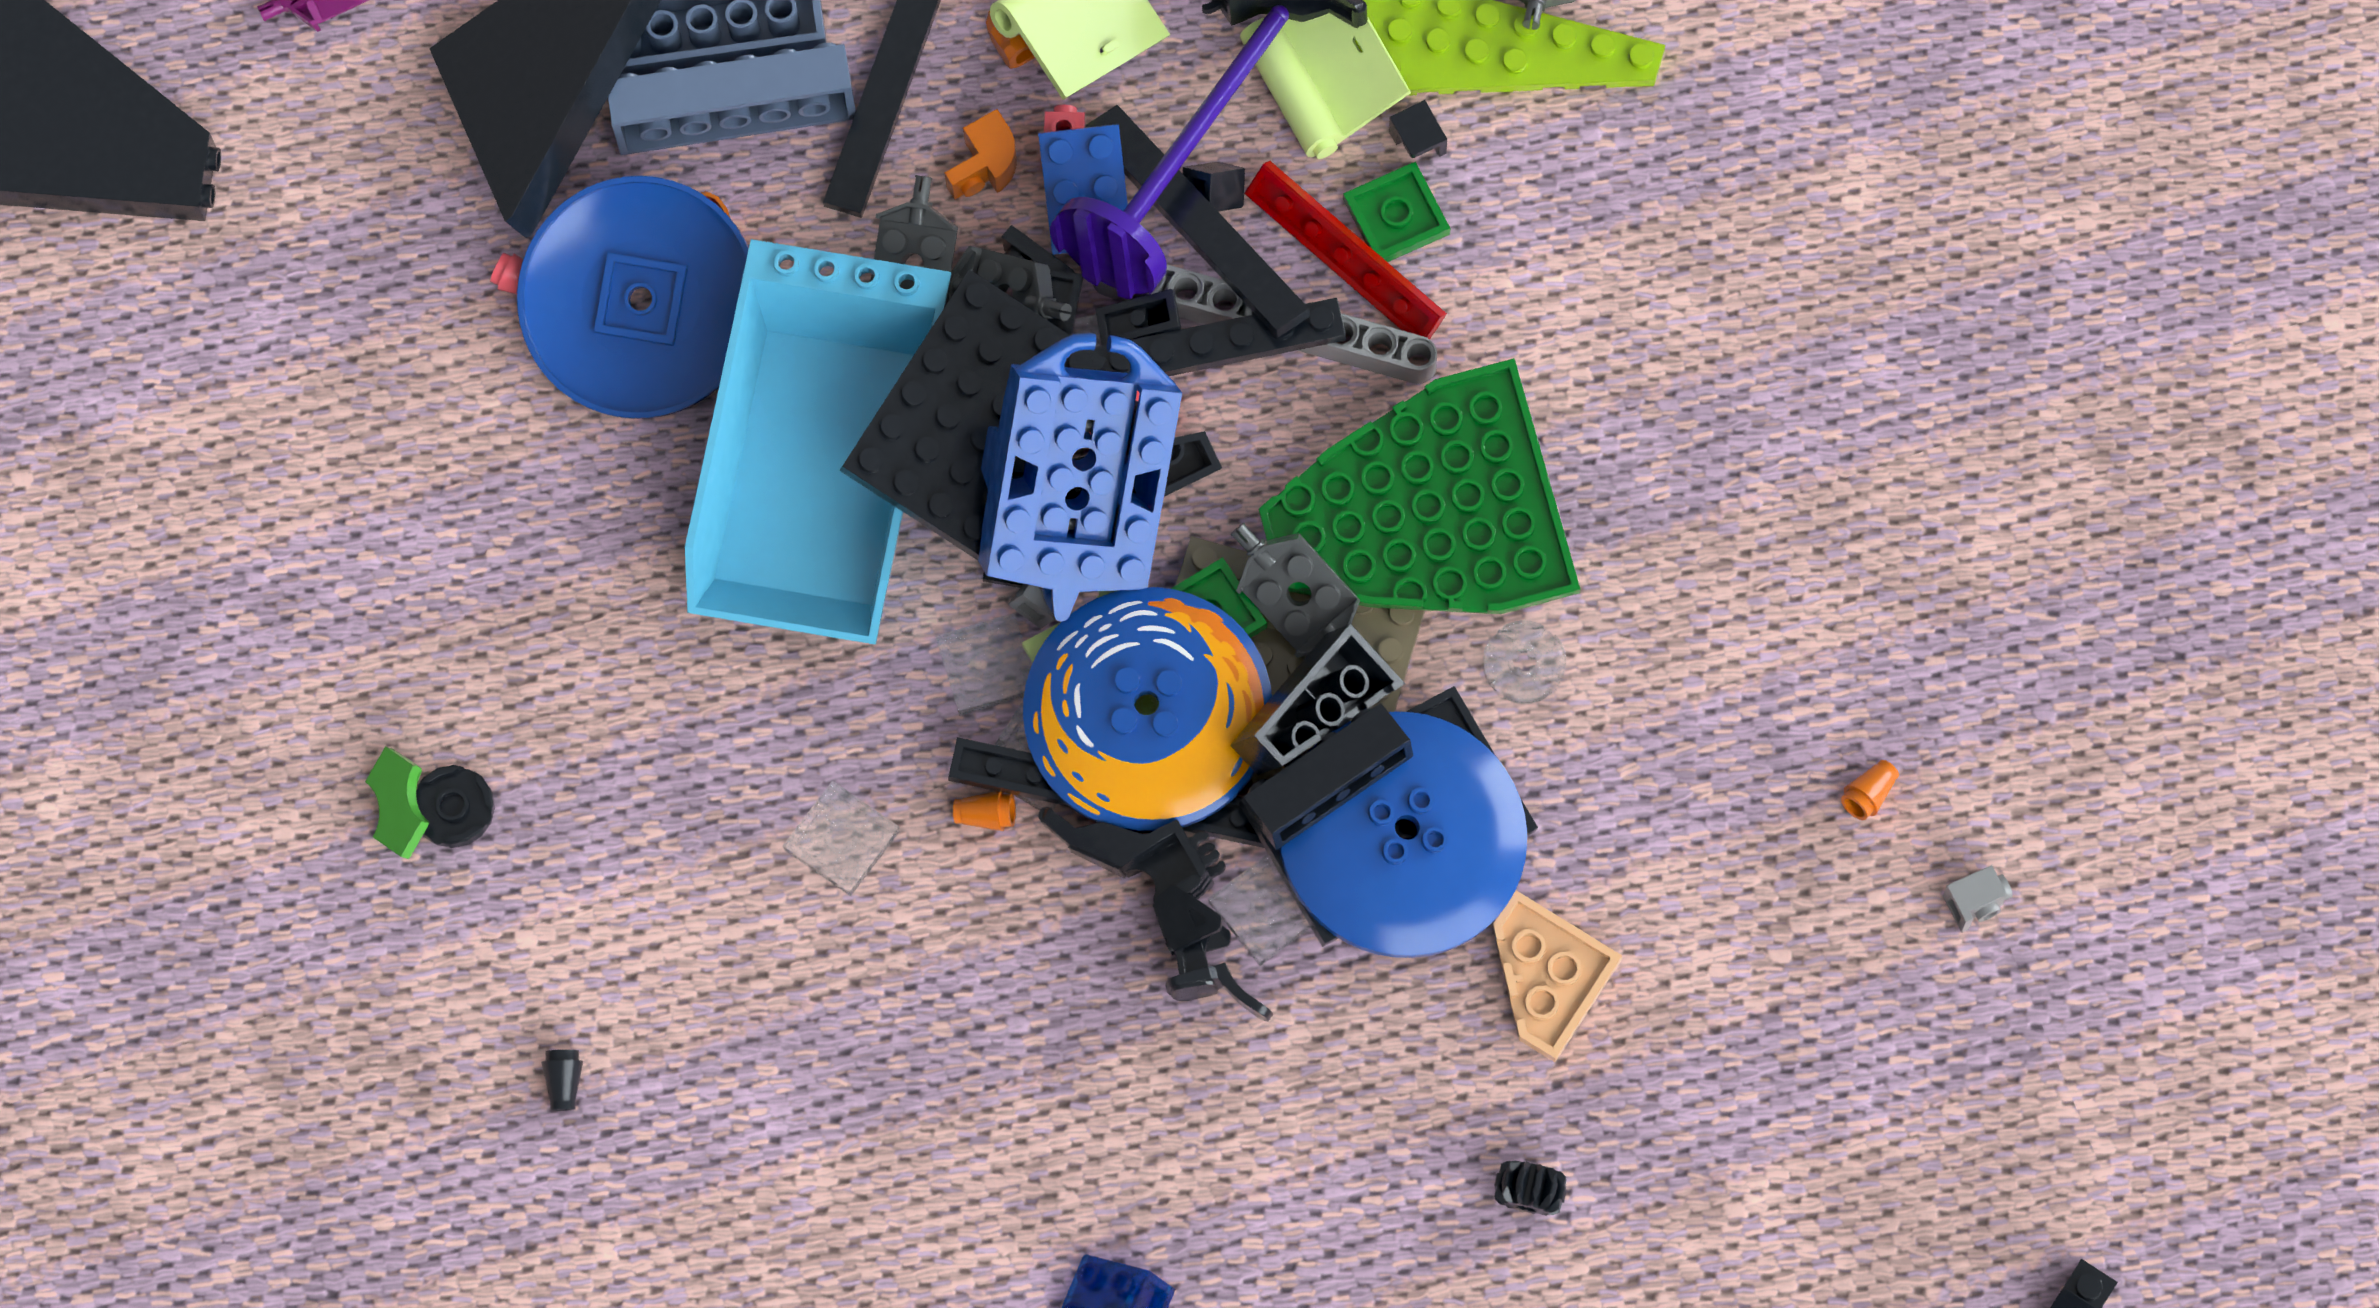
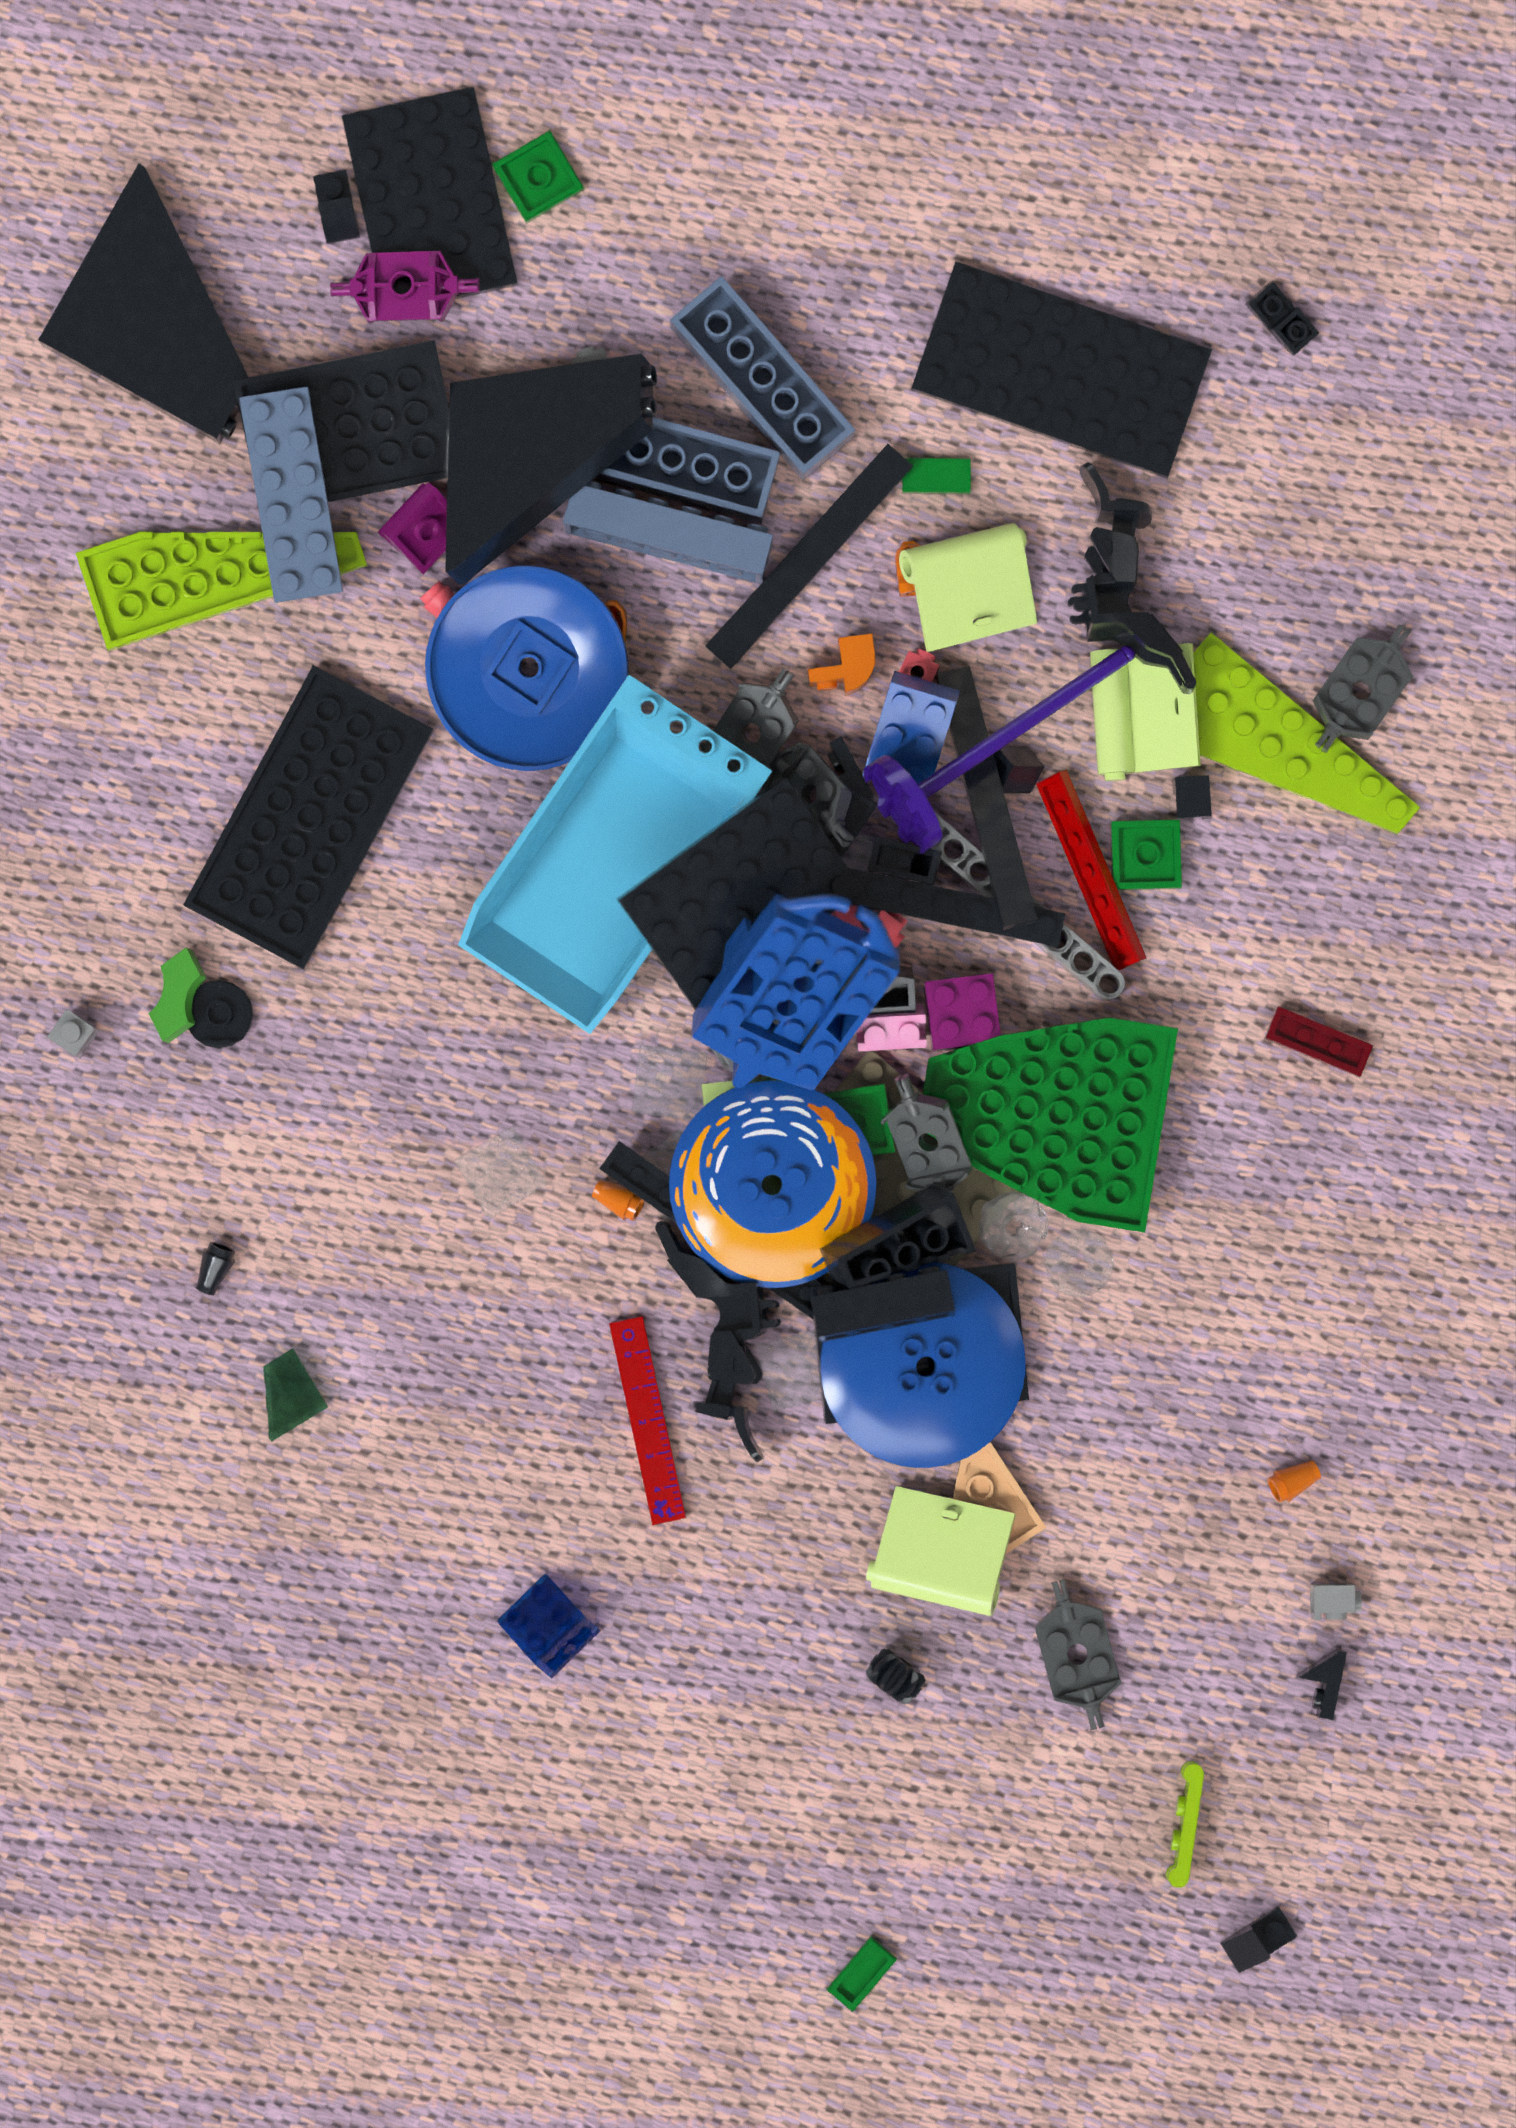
camera: 15 degrees right, 15 degrees up
(208, 378) = (181, 578): none -> lime wing
(296, 891) = (73, 1033): none -> light grey brick
(304, 222) = (291, 494): none -> sand blue brick
(335, 138) = (374, 416): none -> black plate
(460, 207) = (419, 527): none -> magenta bracket
(464, 557) = (308, 817): none -> black plate
(708, 1180) = (290, 1394): none -> clear green wing
(1125, 1037) = (647, 1420): none -> red tile
(1203, 501) = (893, 1031): none -> bright pink brick
(1269, 449) = (961, 1011): none -> magenta piece
(1412, 658) = (1028, 1236): none -> clear plate
(1518, 1029) = (942, 1557): none -> yellowish green door
(1673, 324) = (1318, 1042): none -> dark red plate
(1713, 1046) = (1097, 1675): none -> dark grey plate
(1938, 1228) = (1183, 1839): none -> lime plate
(2011, 979) = (1329, 1673): none -> black slope

